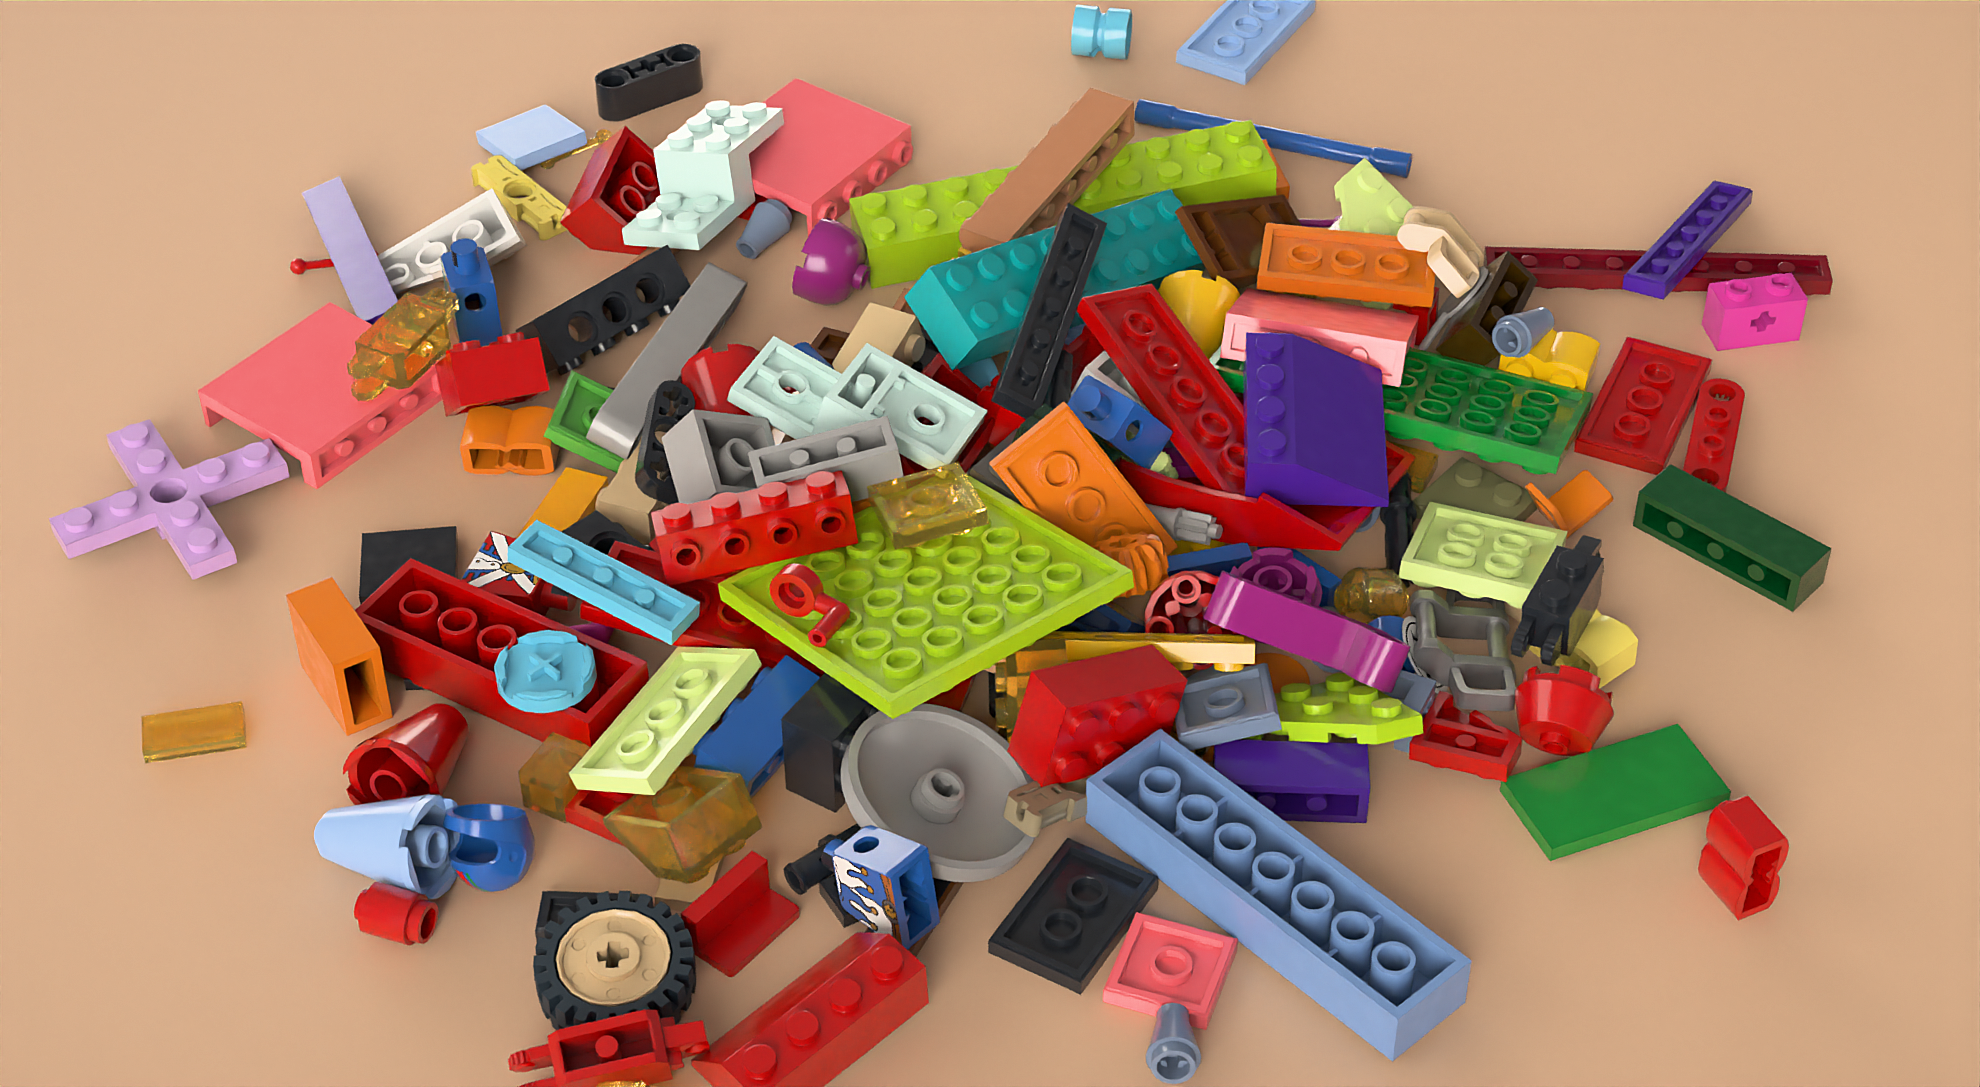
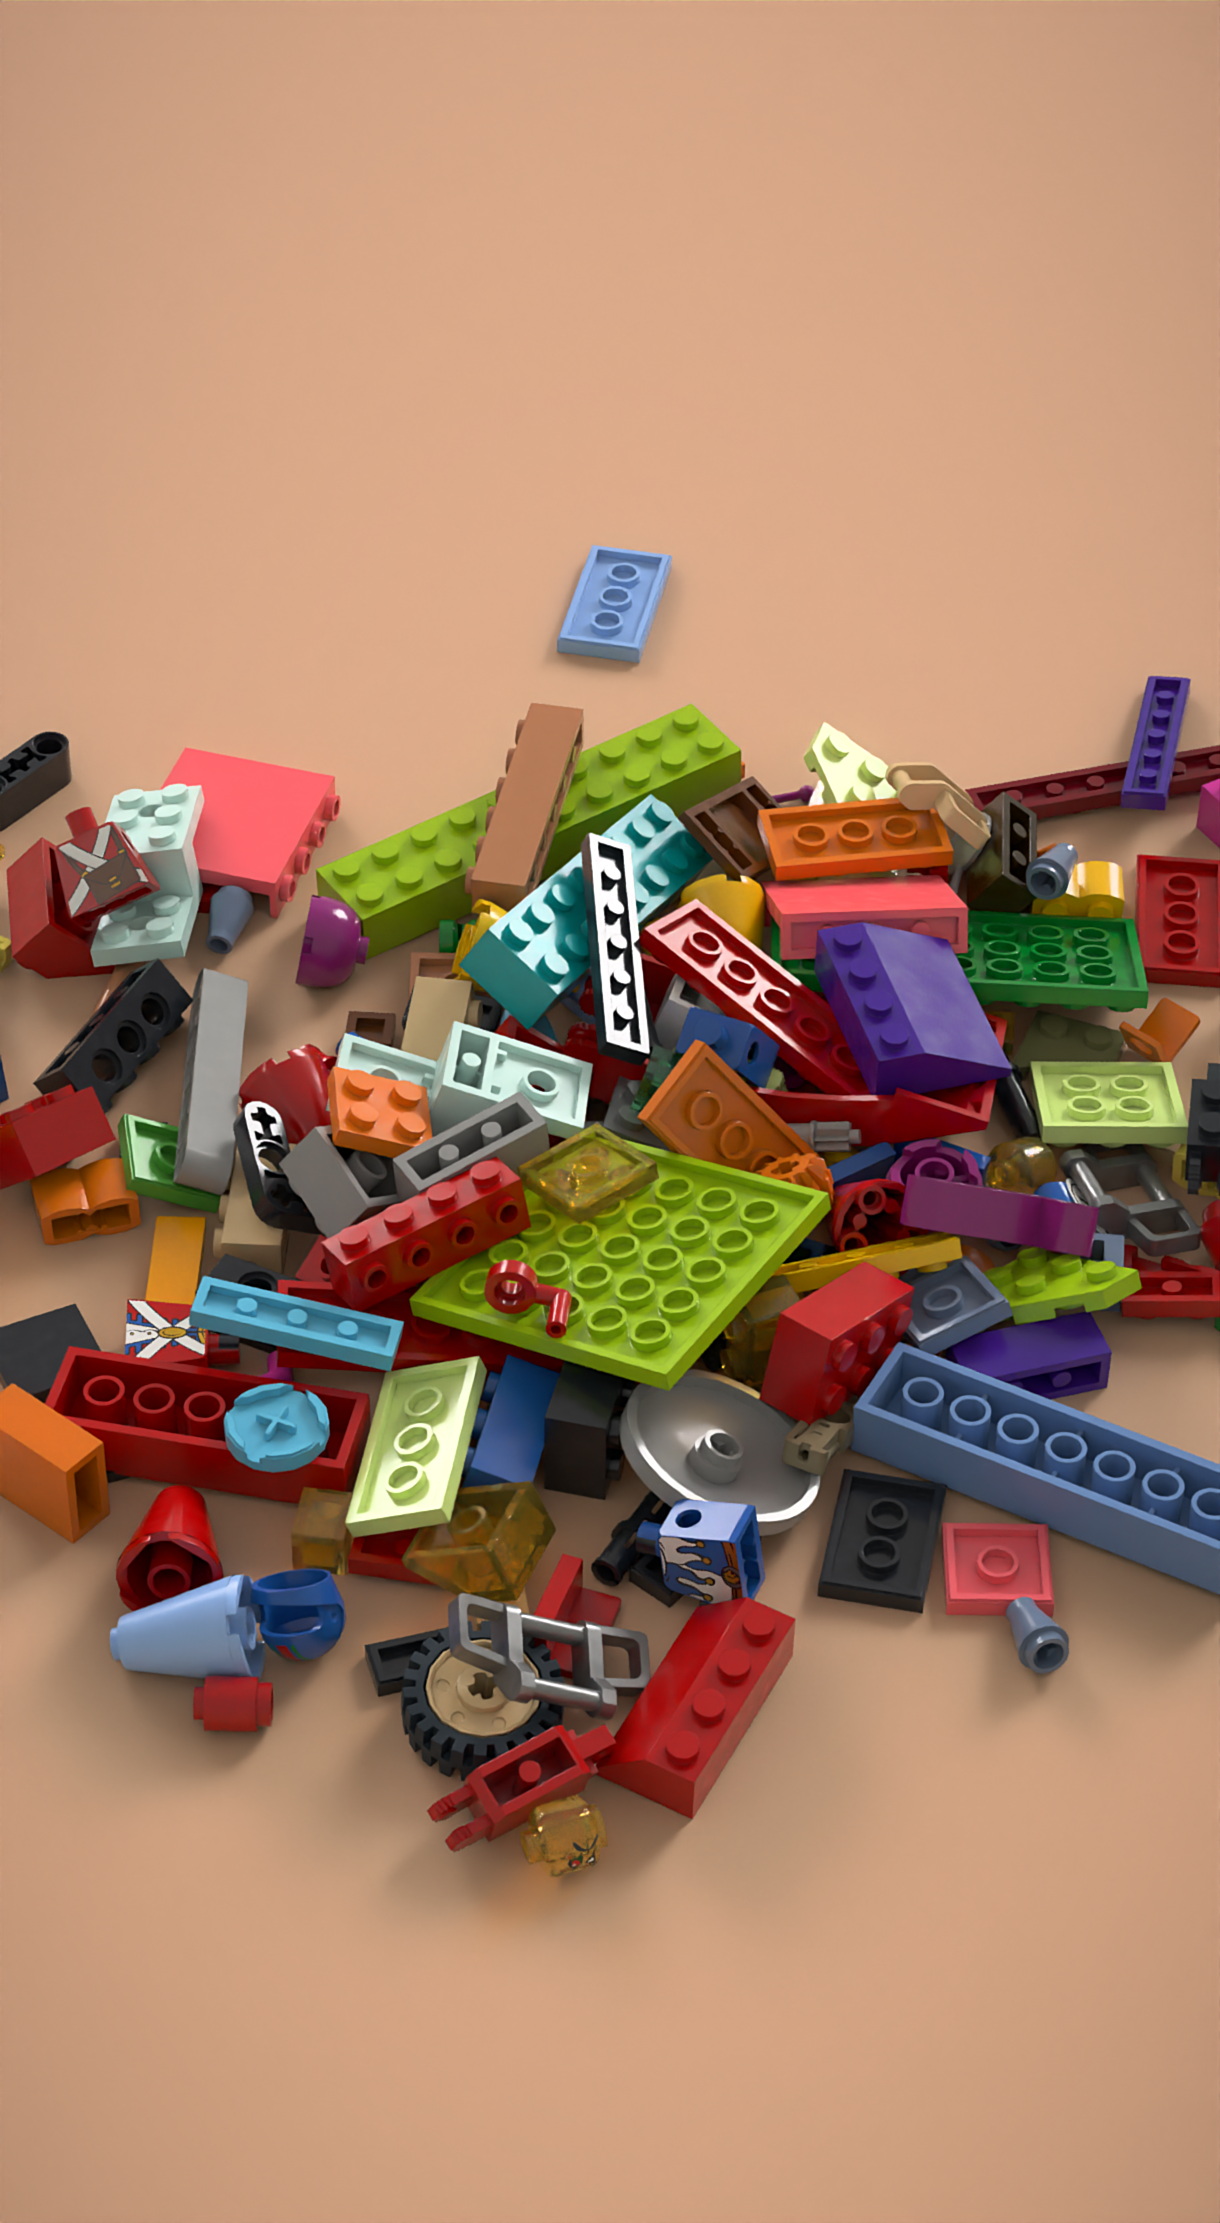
camera: 20 degrees left, 0 degrees up
(651, 159) = (100, 868): none -> torso
(734, 934) = (517, 1680): none -> flat silver bar
(761, 409) = (377, 1112): none -> orange plate
(1101, 32) = (475, 633): medium azure wheel -> none
(1383, 159) = (720, 715): blue piece -> none

